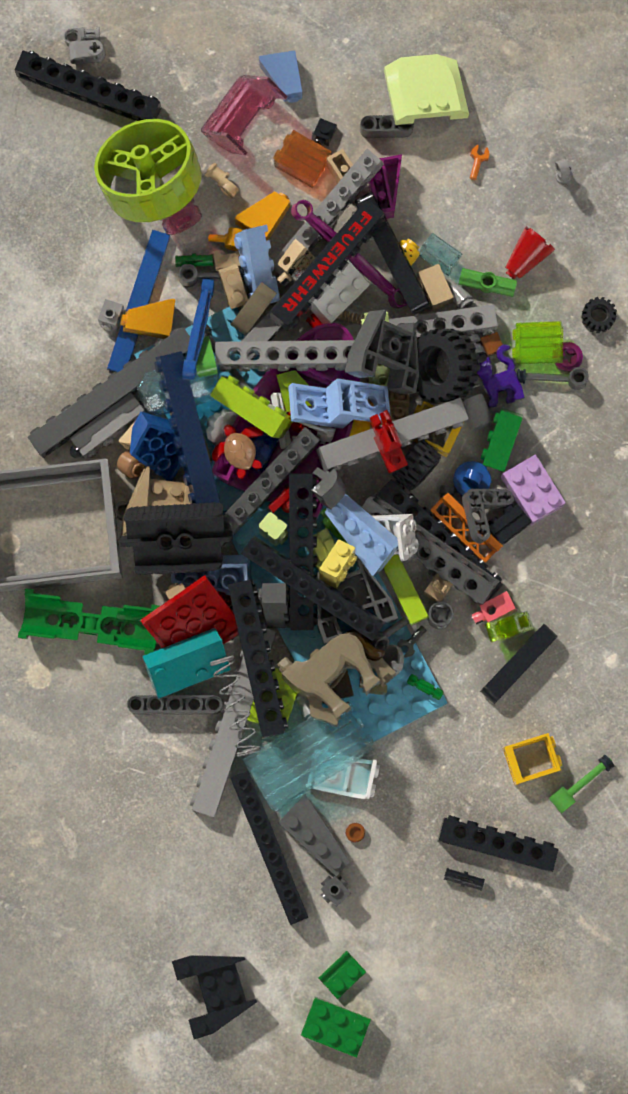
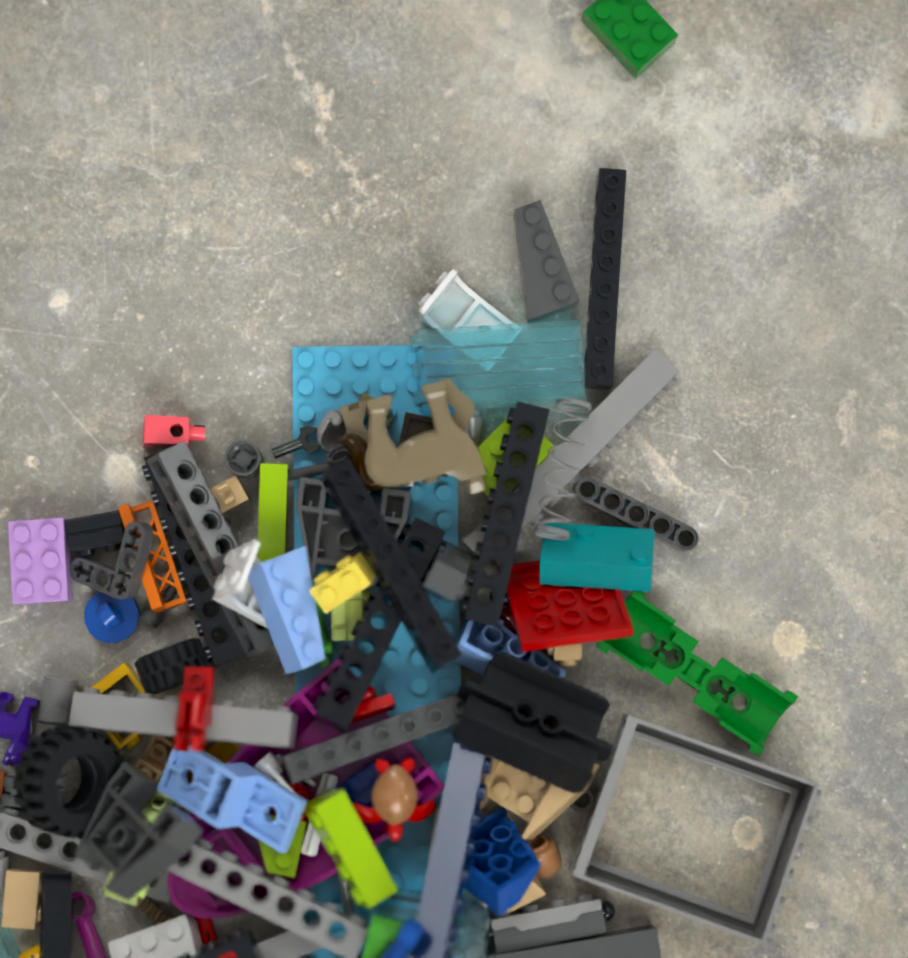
camera: 155 degrees left, 5 degrees up
(216, 425) = (406, 850): white plant -> none
(219, 987) = (747, 142): black wedge -> none
(273, 529) = (400, 672): yellowish green brick -> none
(330, 487) = (301, 683): dark grey brick -> none
(342, 892) = (552, 178): dark grey brick -> none
(342, 974) = (590, 86): green plate -> none
(355, 832) = (488, 247): dark orange tile -> none
(425, 686) = (310, 378): green axle -> none
(477, 883) = (381, 122): black pin -> none
(501, 439) = (43, 648): green wedge -> none
(509, 627) = (164, 400): clear neon green brick -> none
(513, 765) = (251, 229): yellow window -> none
(518, 663) = (176, 350): black beam -> none
(545, 862) = (275, 94): black brick -> none
(563, 798) = (210, 158): bright green piece -> none

